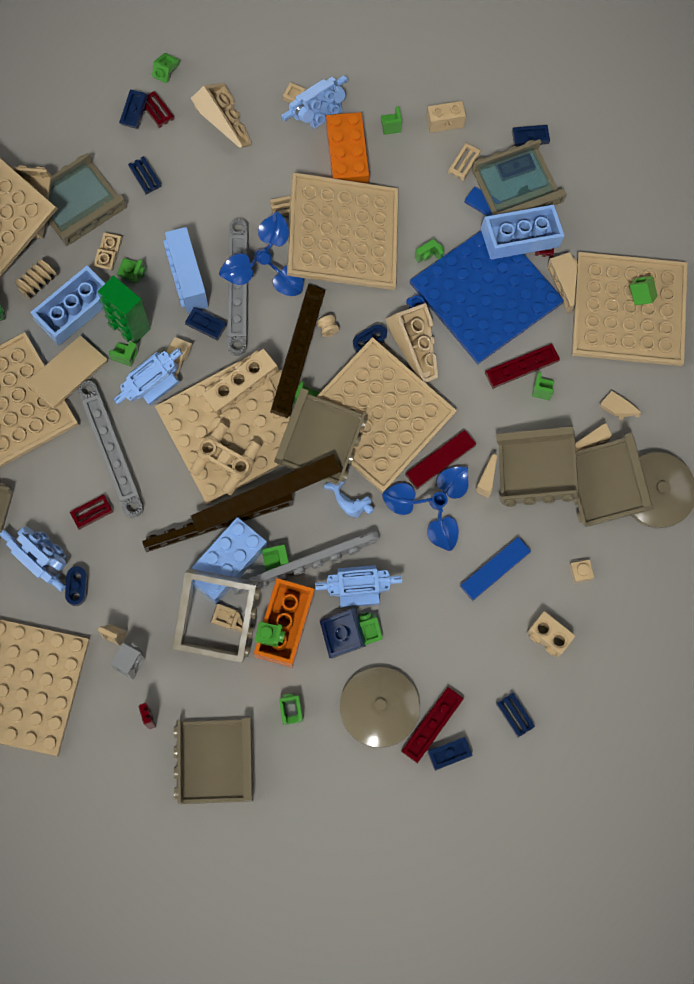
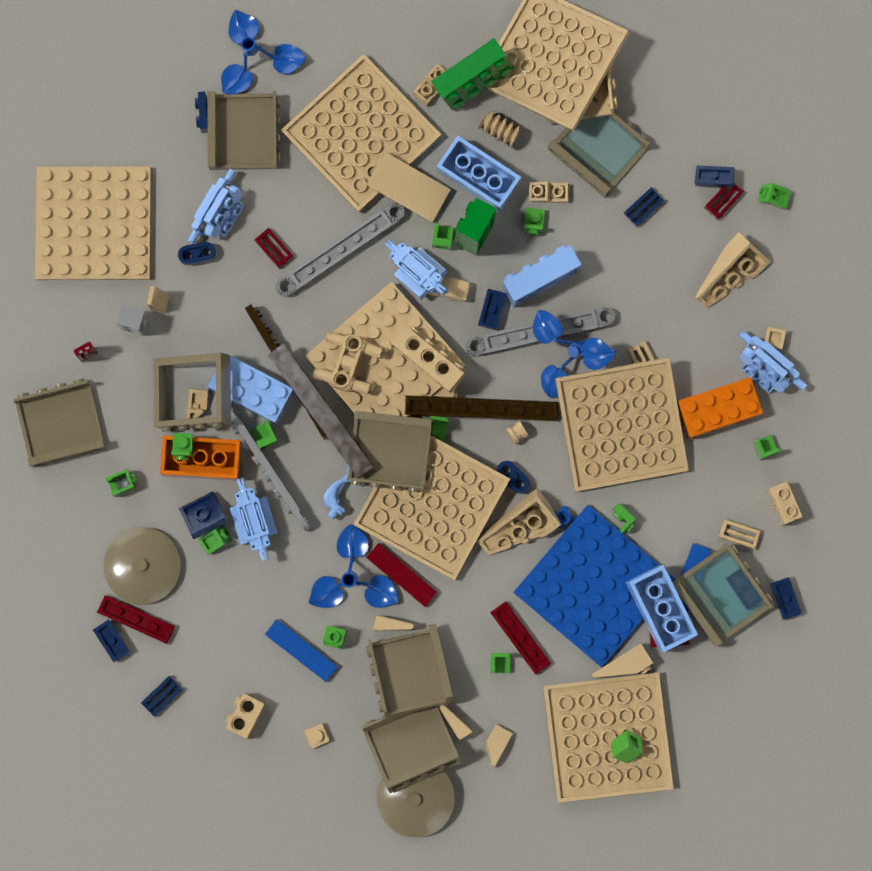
camera: 80 degrees right, 10 degrees up
(489, 532) = (334, 637): none -> bright green window

